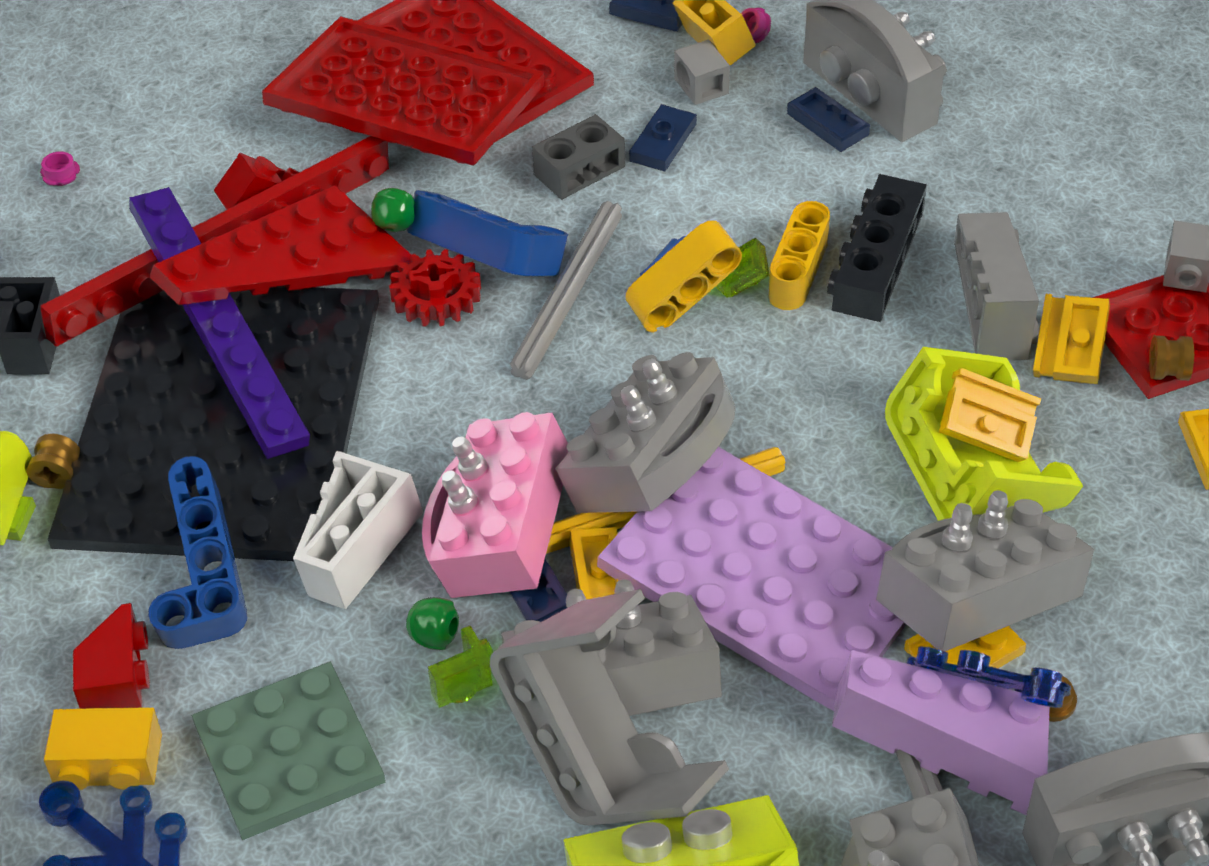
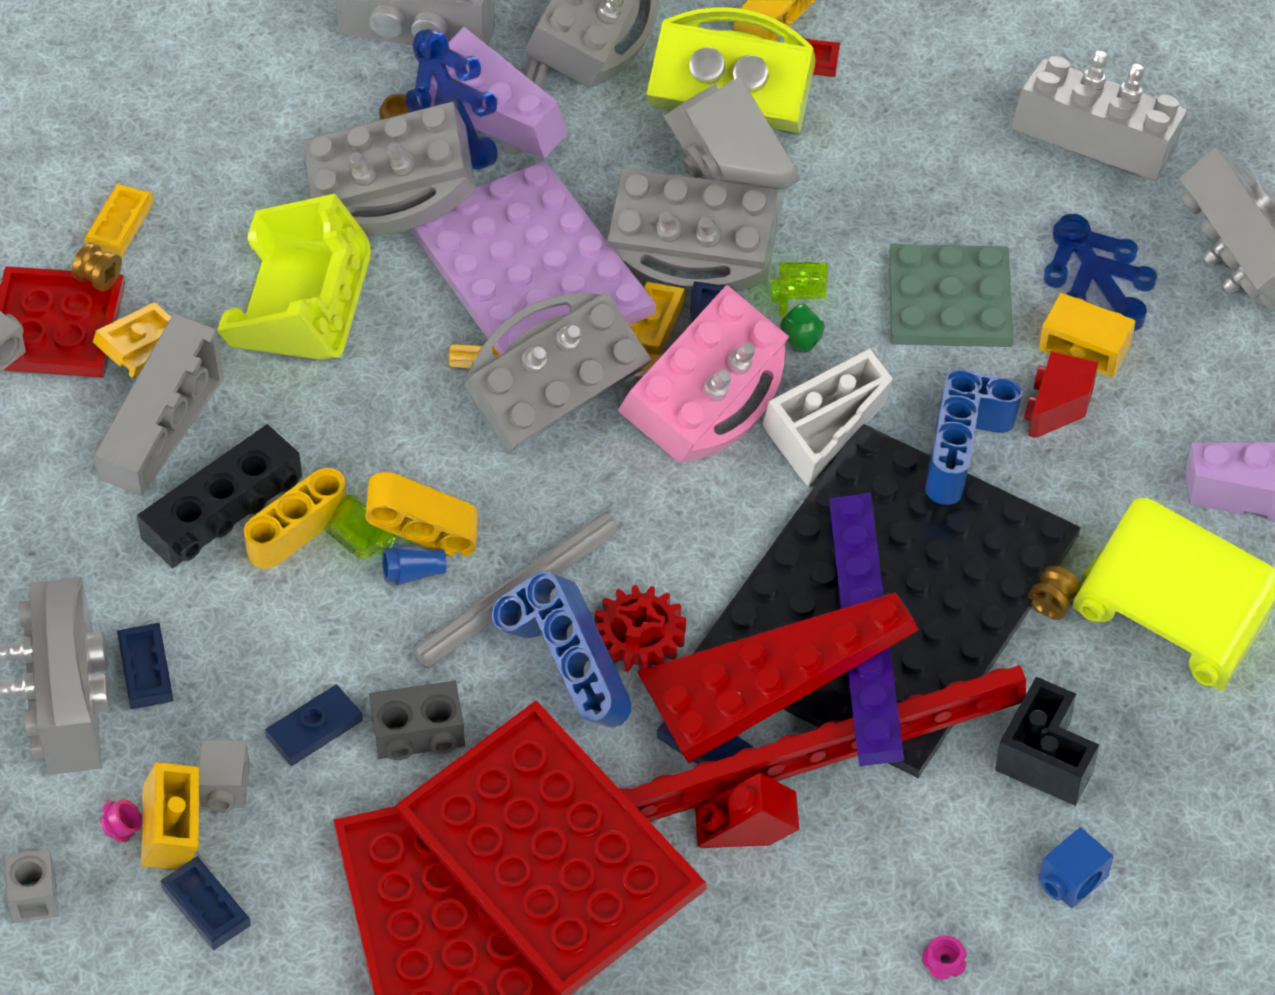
camera: 155 degrees left, 5 degrees up
(393, 209) = (640, 700): green piece -> none
(990, 415) = (276, 285): yellow plate -> none

